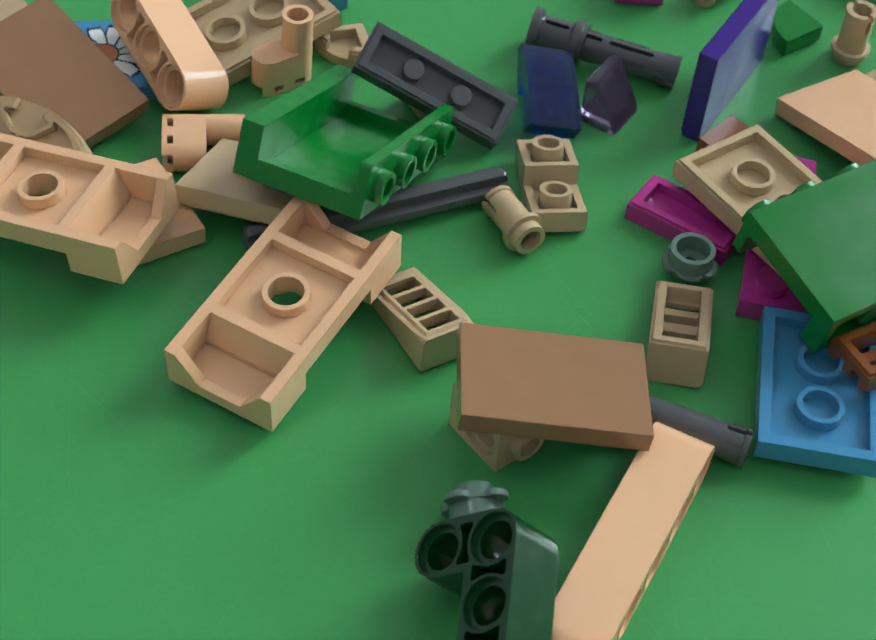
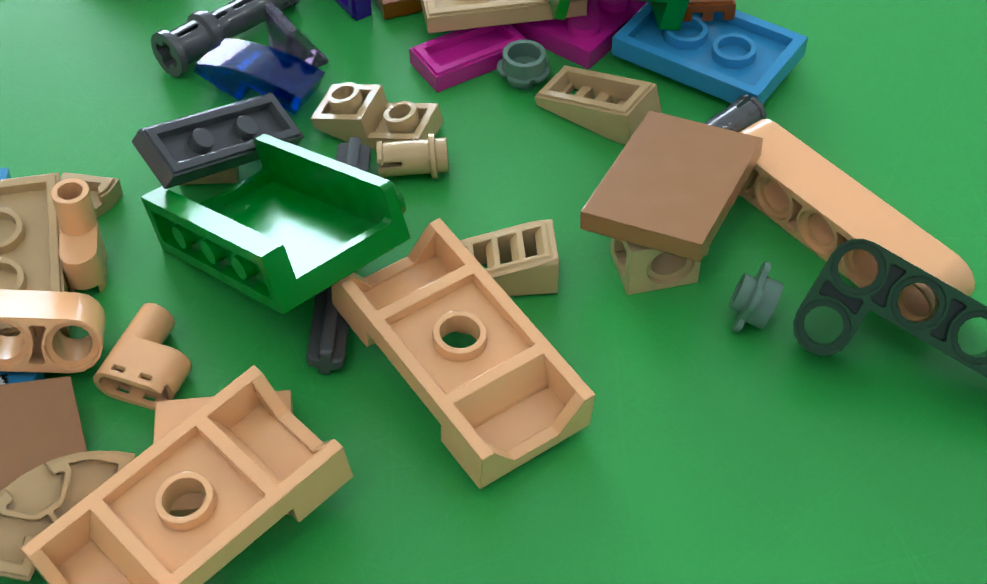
camera: 60 degrees left, 0 degrees up
(217, 189) = (238, 332): tan plate -> none

